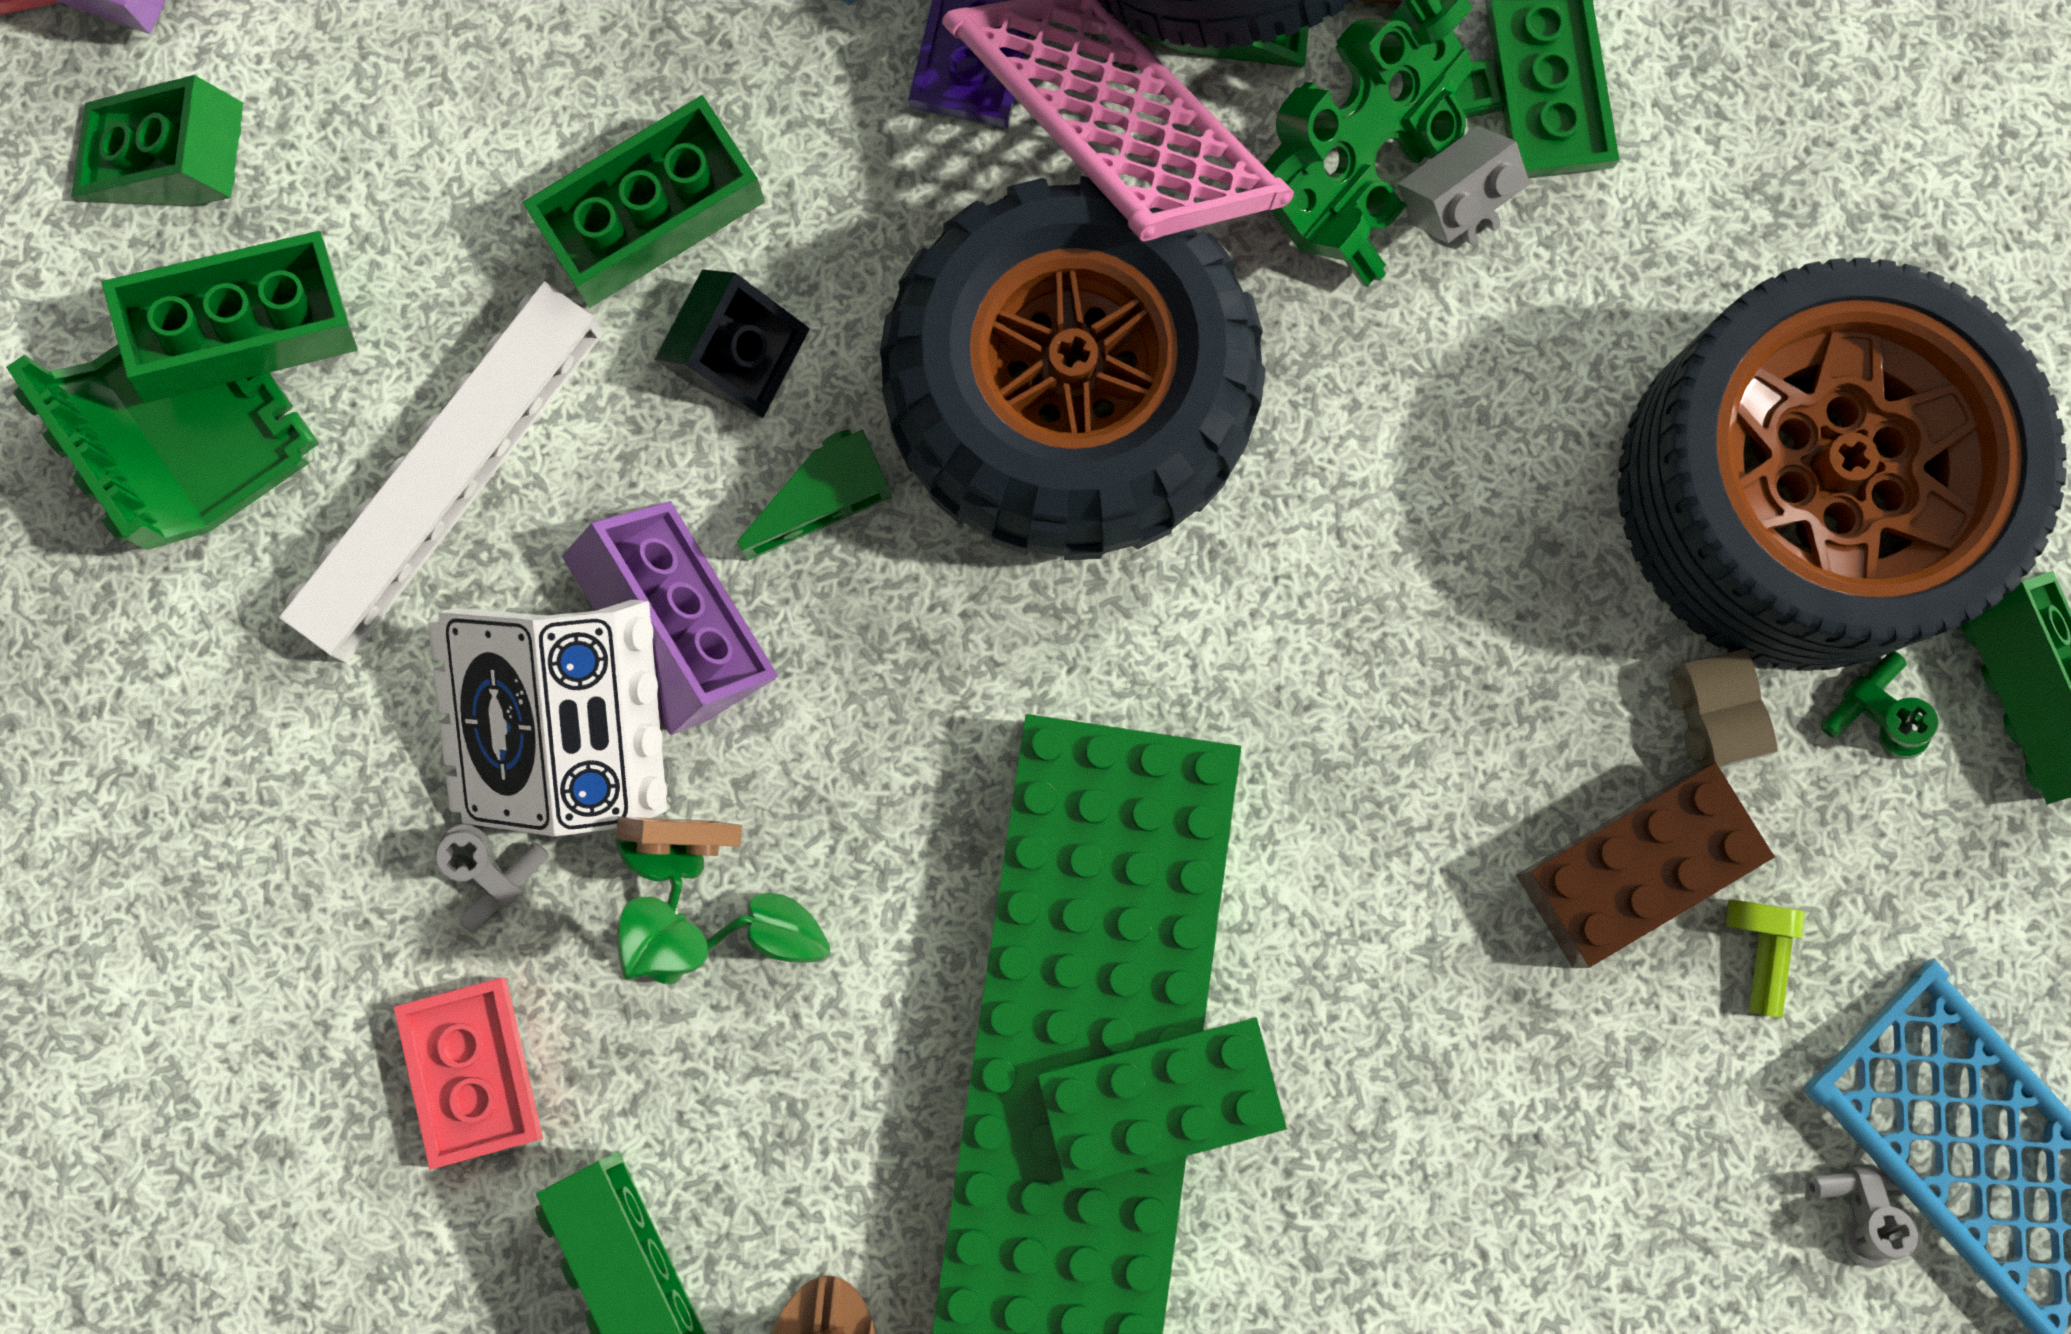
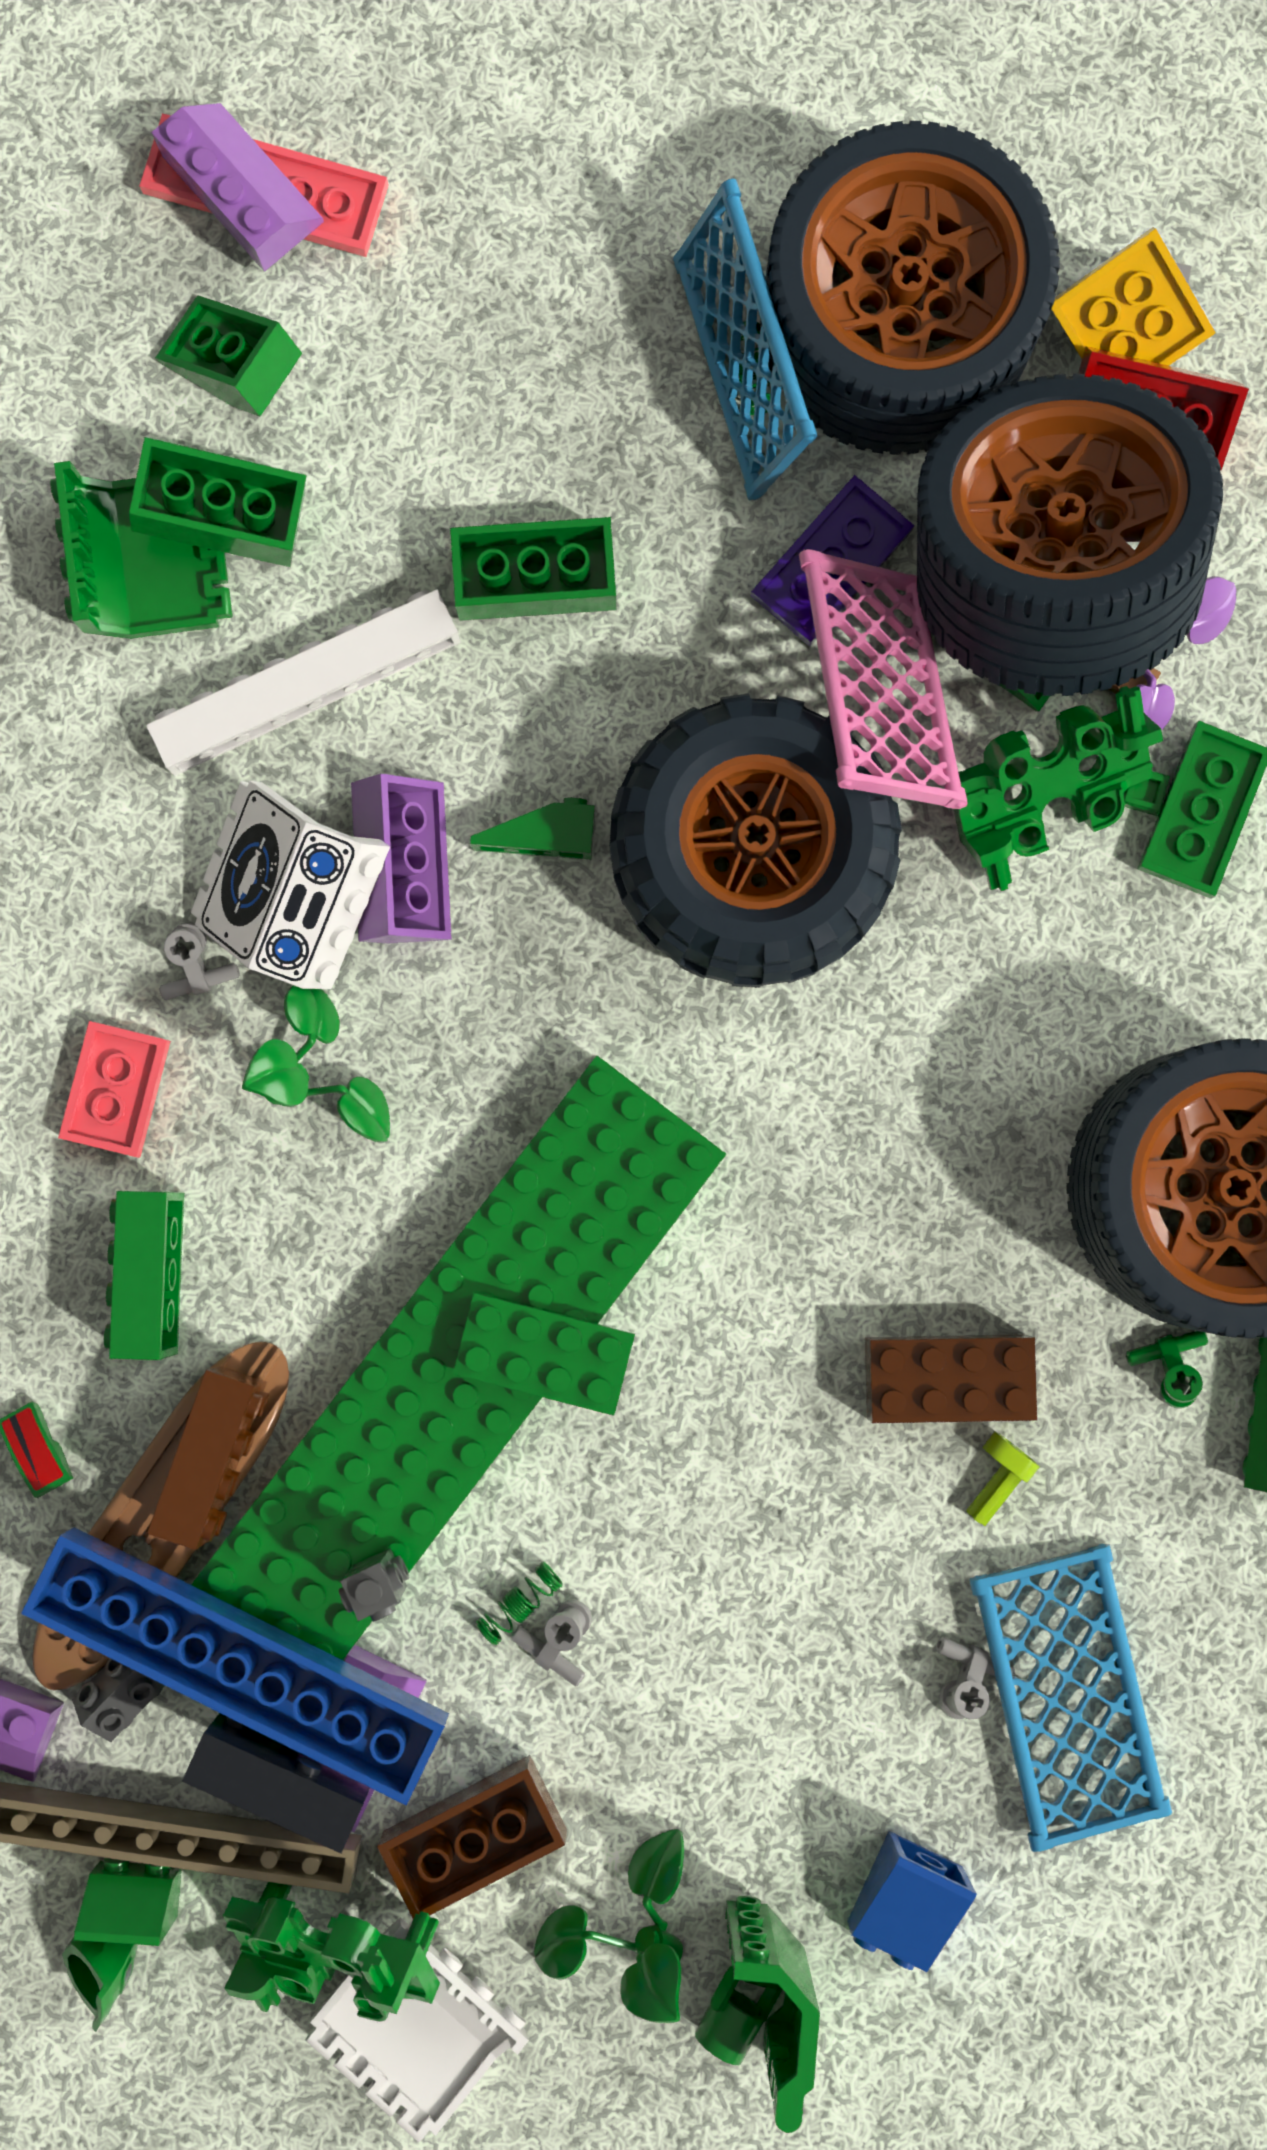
camera: 30 degrees right, 5 degrees up
(657, 834) = (342, 1017): medium nougat plate -> none
(732, 341) = (541, 697): black slope -> none
(1464, 186) = (1095, 857): light grey brick -> none
(1723, 709) = (1064, 1305): dark tan brick -> none

